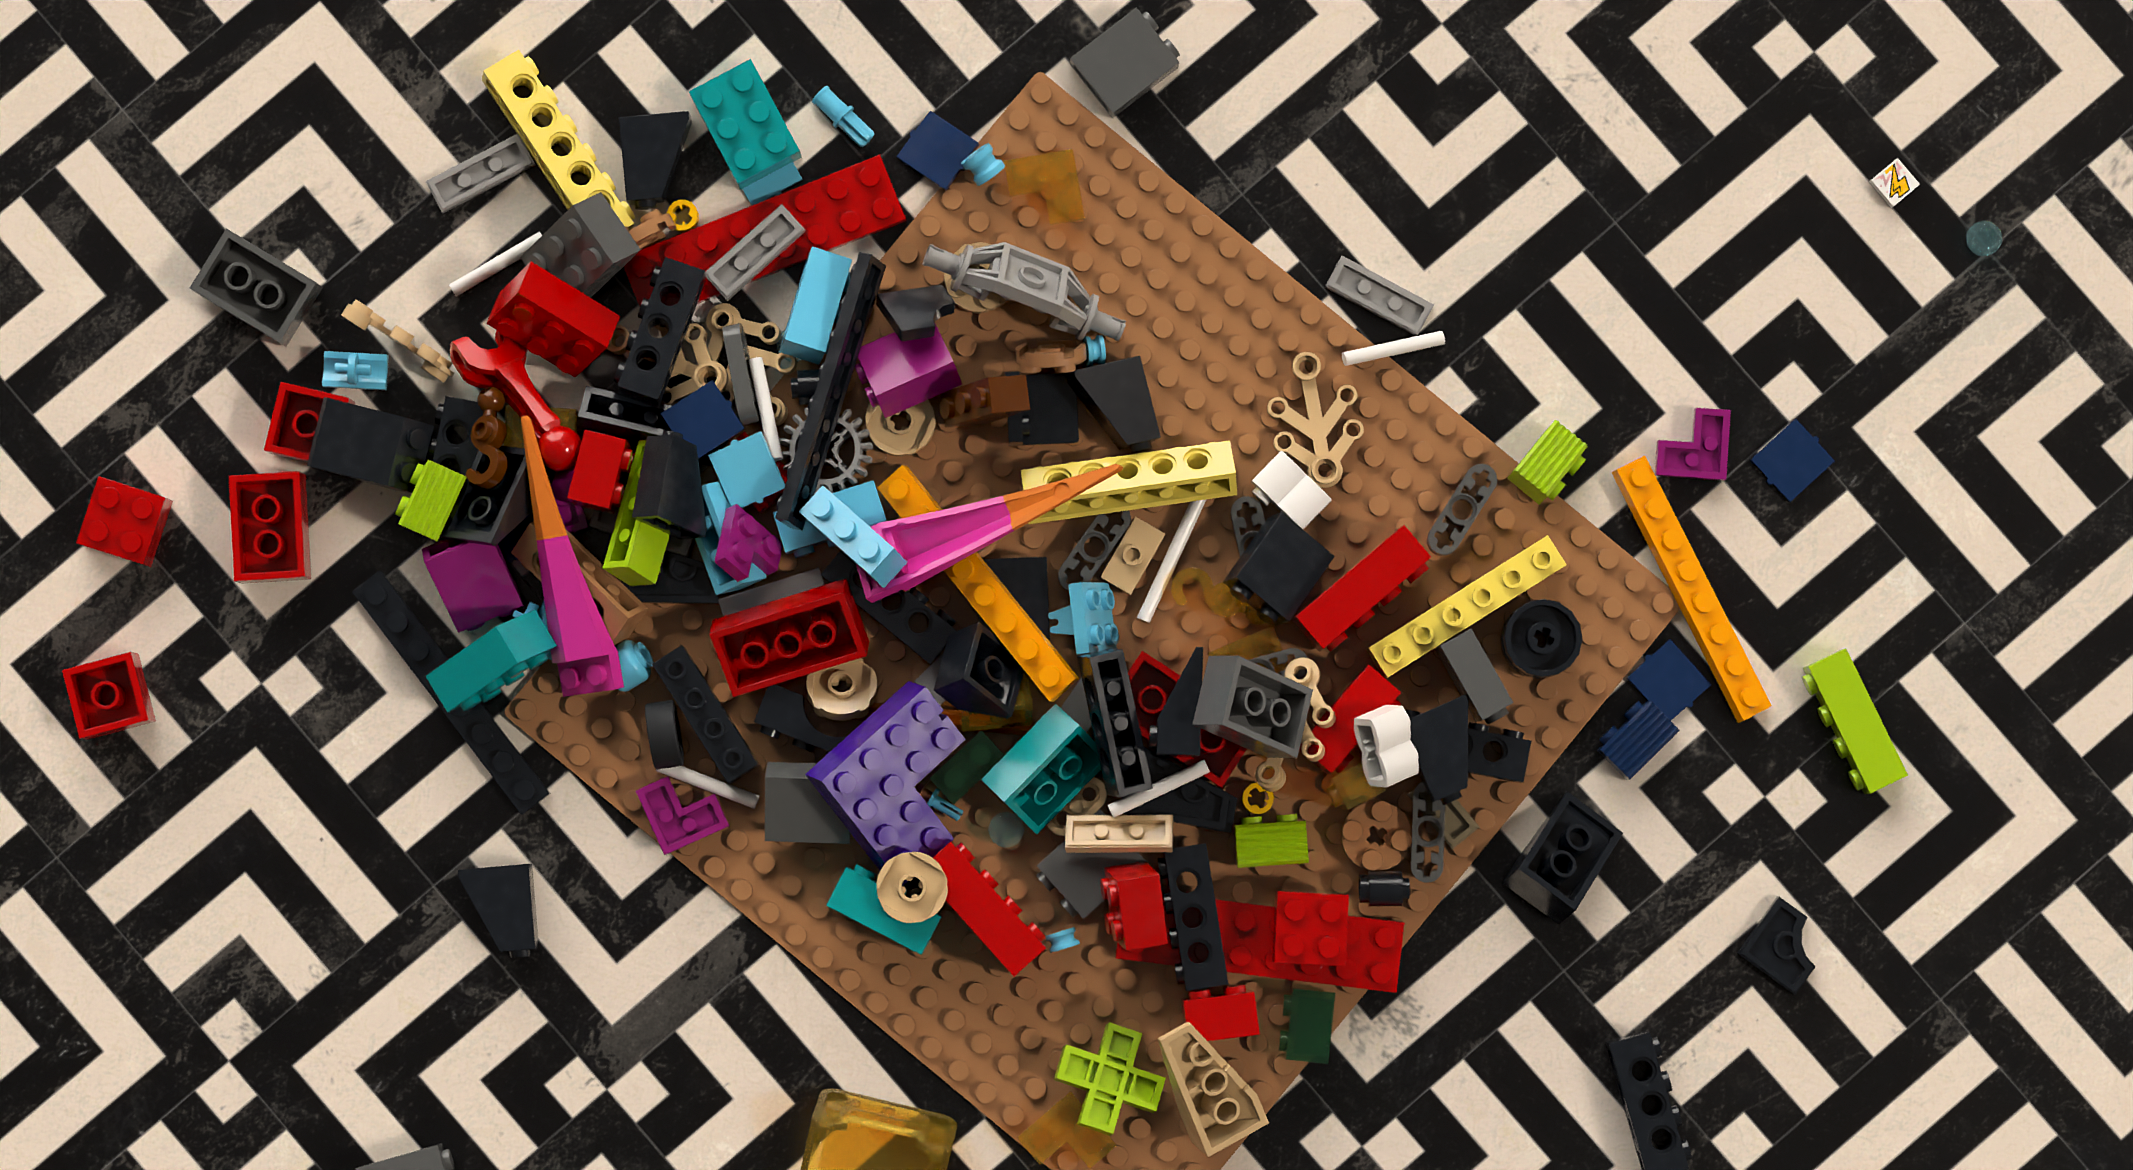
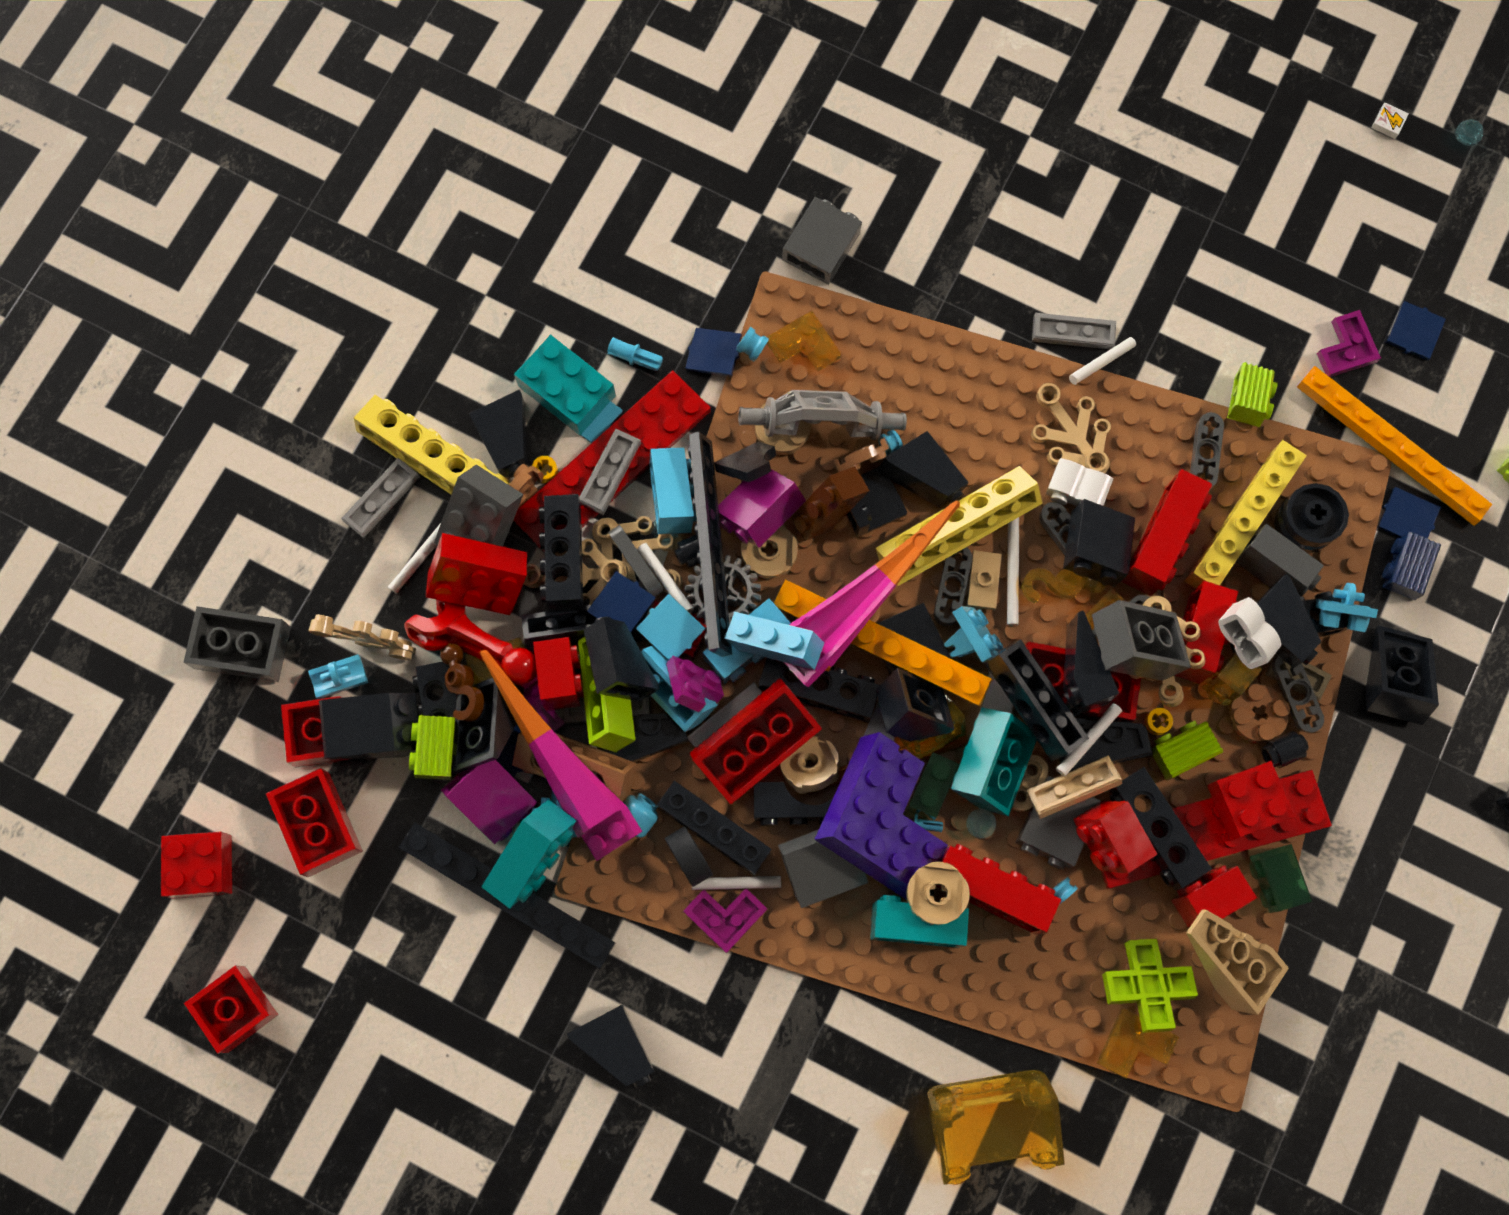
camera: 20 degrees left, 10 degrees down
(1531, 769) = (1358, 614): none -> medium azure hips

